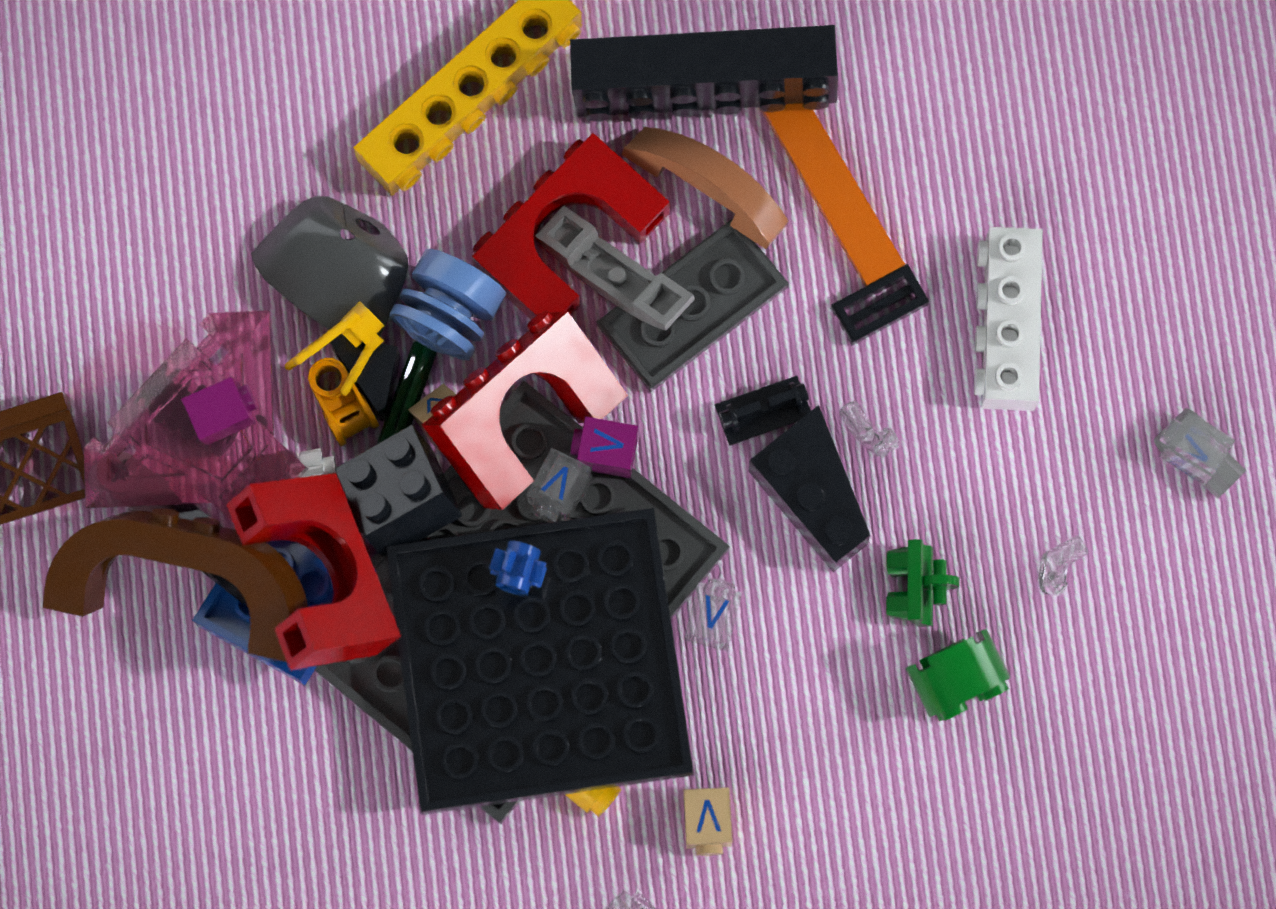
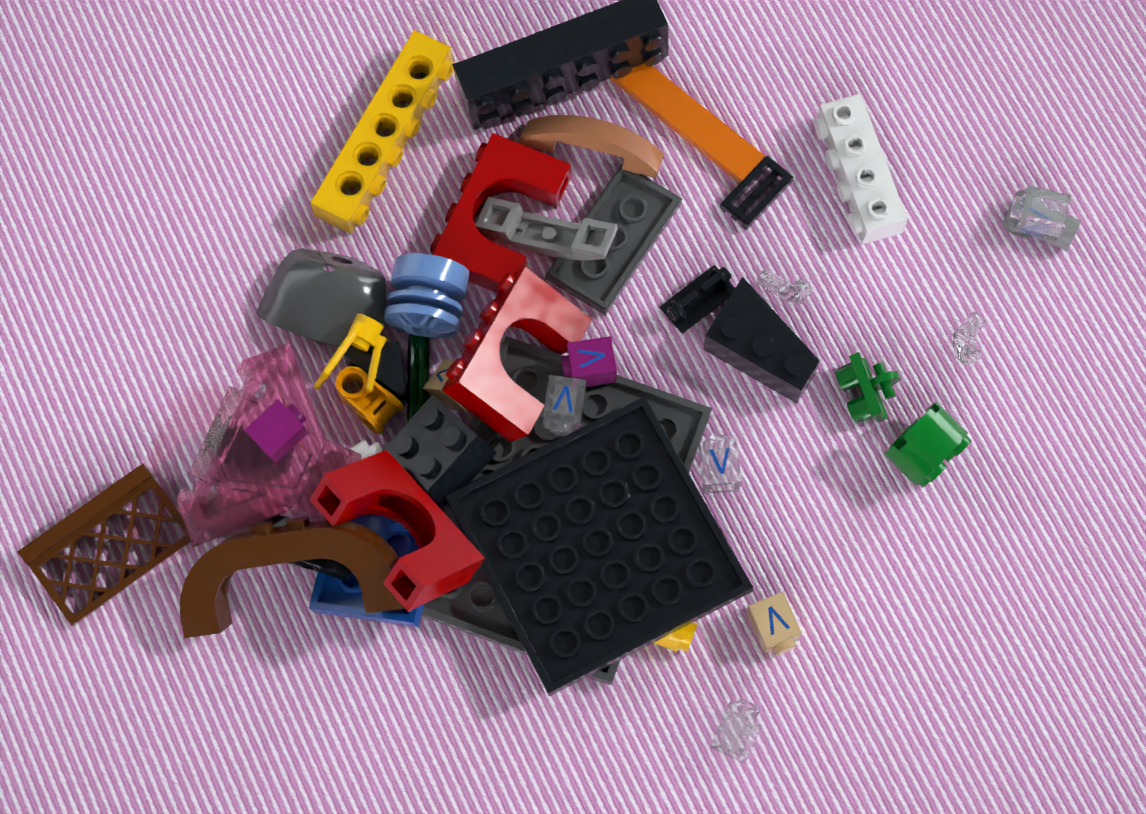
camera: 20 degrees left, 5 degrees down
(517, 568) = (557, 475): blue gear -> none

